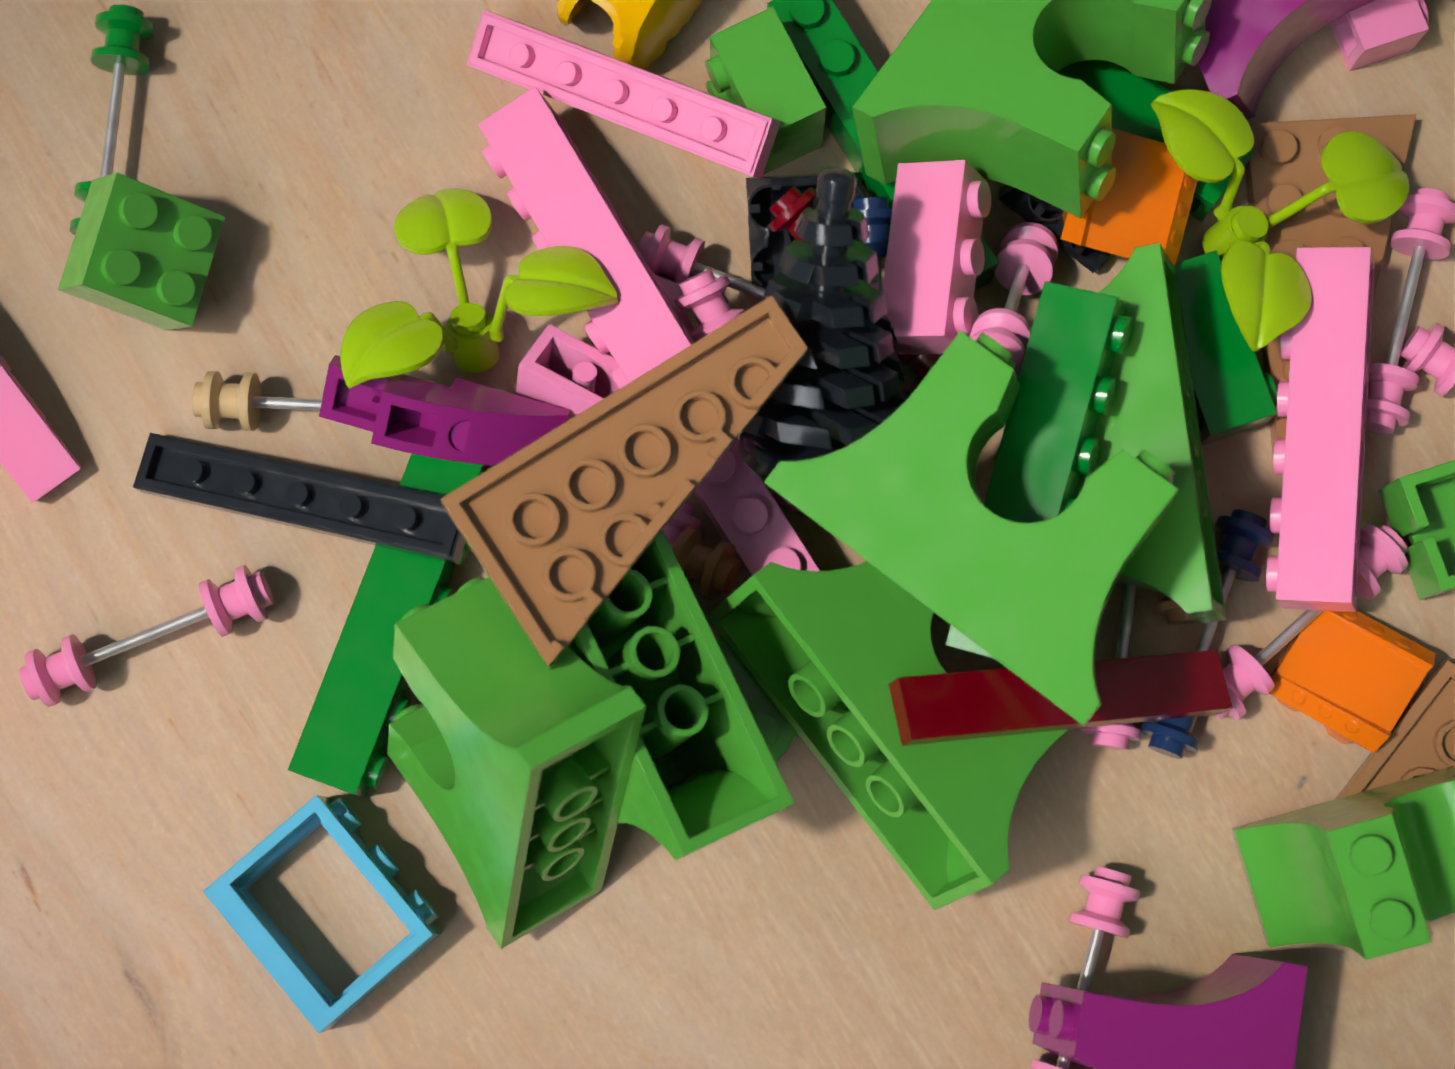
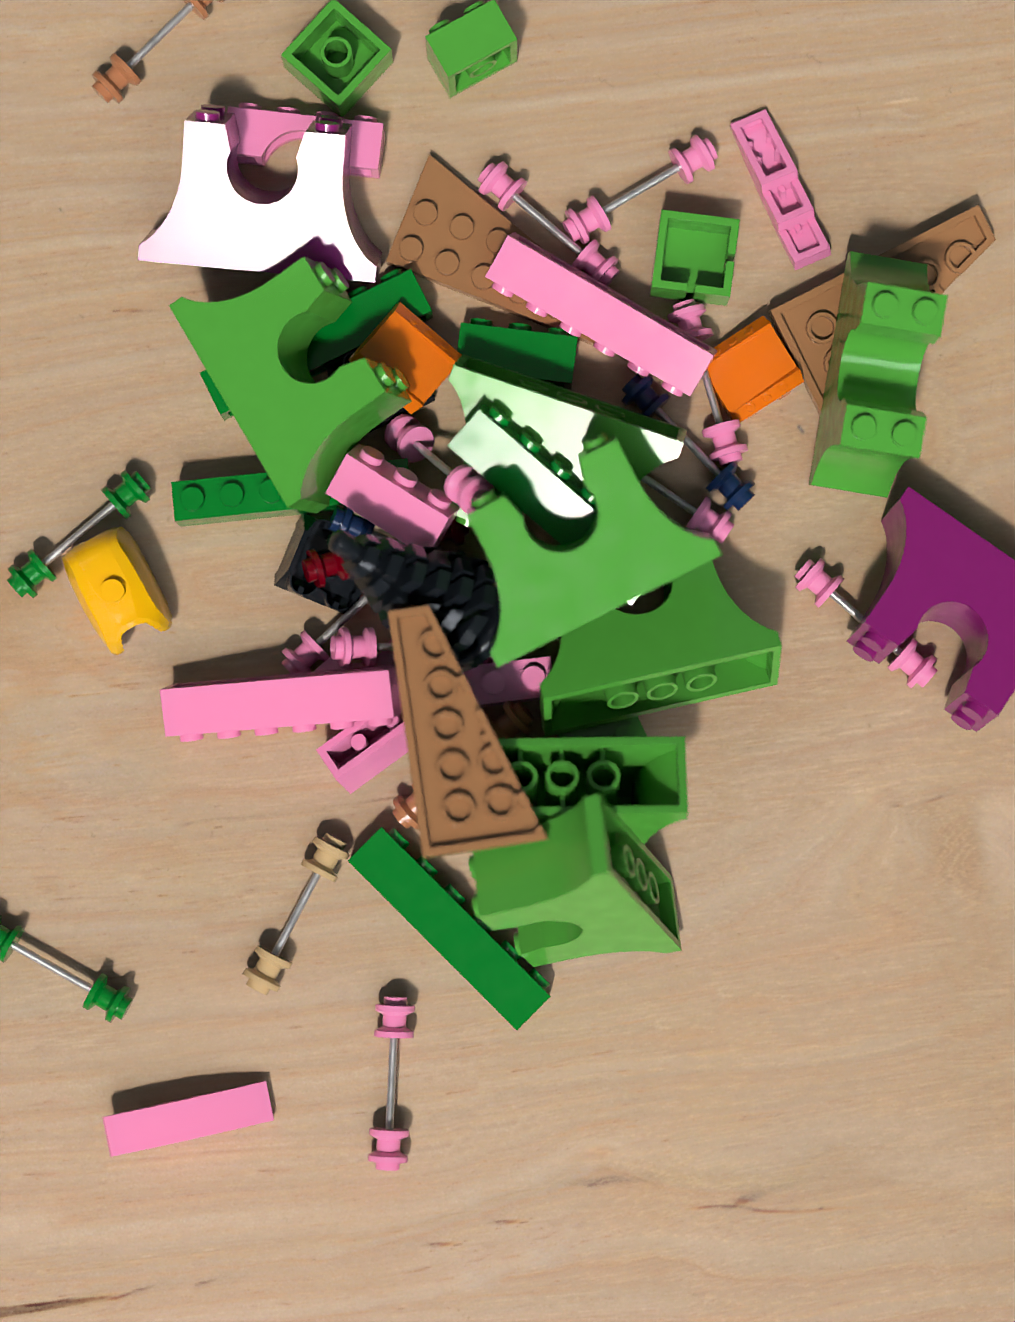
camera: 65 degrees left, 5 degrees up
(141, 252) = (151, 981): bright green brick -> none
(276, 952) = (624, 1085): medium azure window -> none
(299, 497) = (352, 949): black tile -> none
(396, 341) = (291, 848): lime plant -> none
(439, 421) = (352, 838): magenta slope -> none
(624, 94) = (190, 638): bright pink tile -> none
(763, 72) = (230, 549): bright green brick -> none
(1003, 704) = (702, 512): dark red tile -> none
(1263, 288) = (397, 302): lime plant -> none

